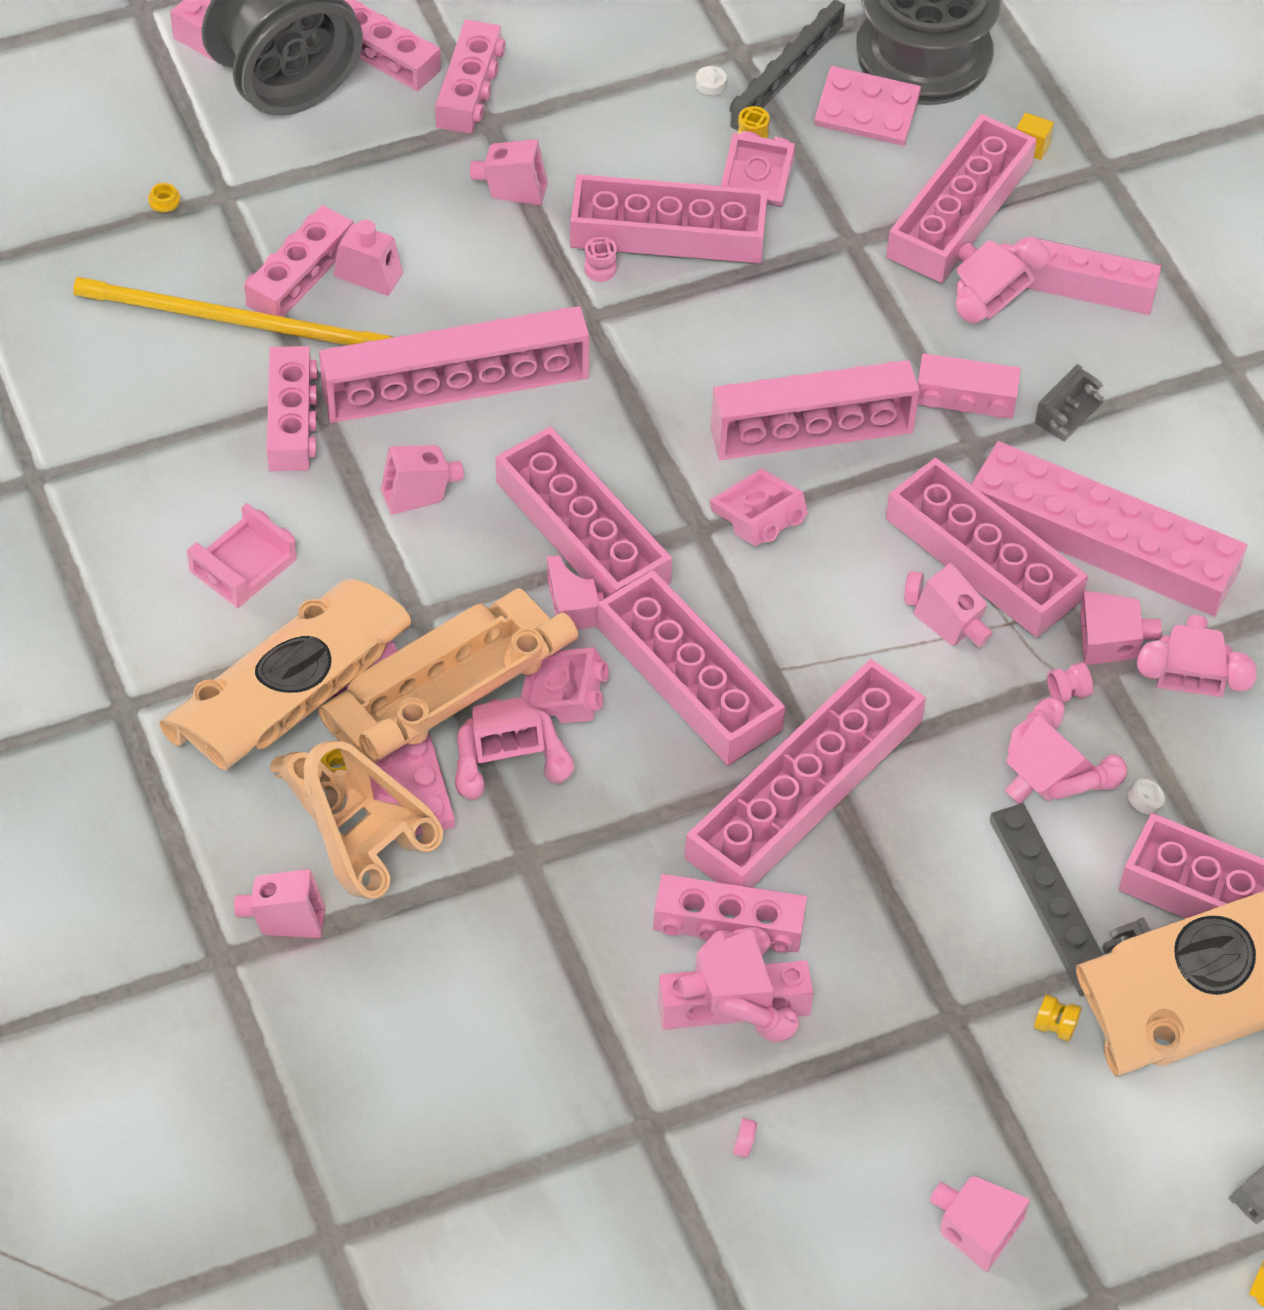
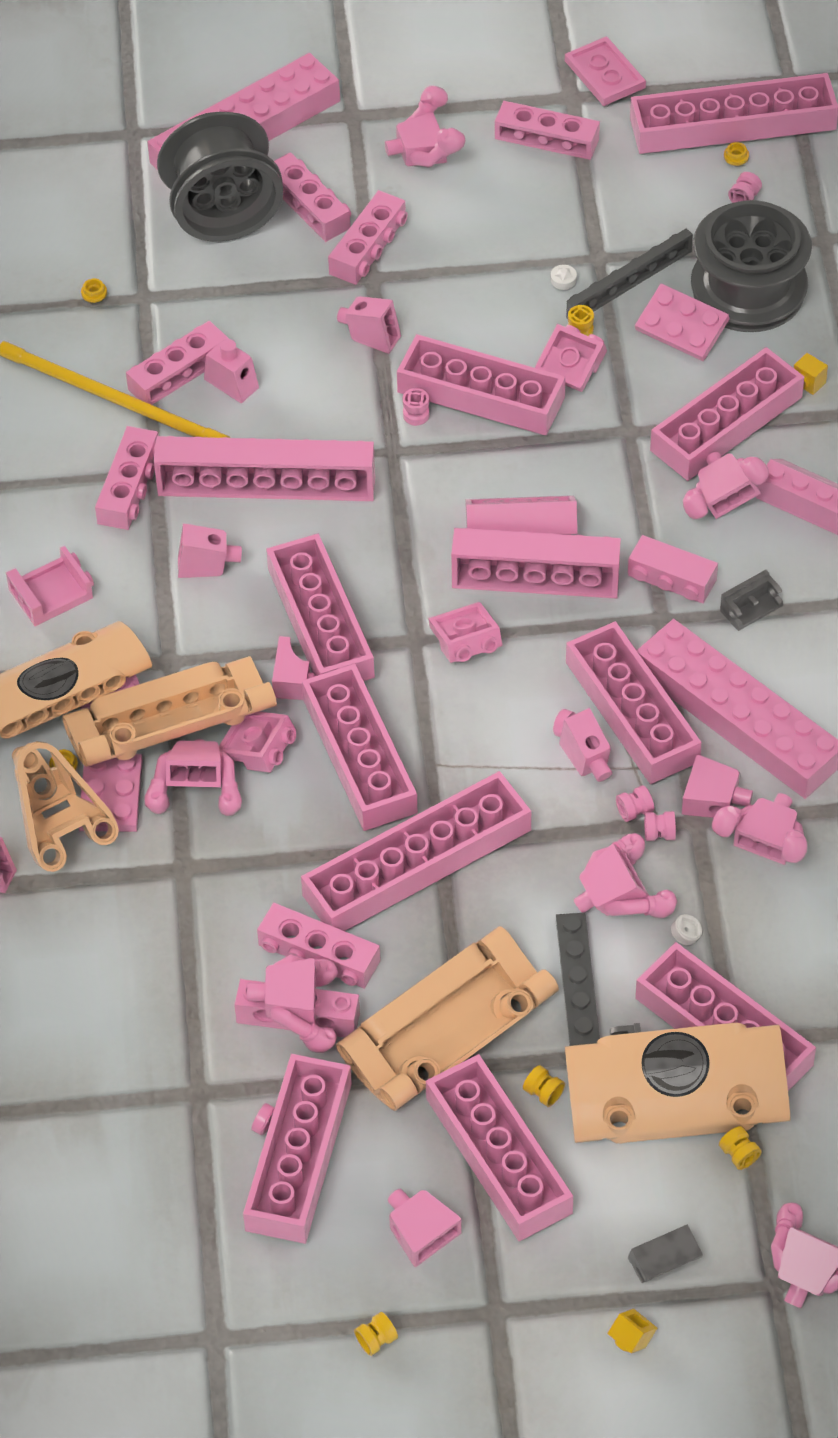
camera: 20 degrees right, 0 degrees up
(774, 357) = (525, 514): none -> bright pink slope
(803, 1164) = (297, 1148): none -> bright pink brick
(913, 967) = (445, 1018): none -> light nougat panel
(1031, 663) = (634, 803): none -> bright pink wheel
(1038, 1103) = (499, 1147): none -> bright pink brick

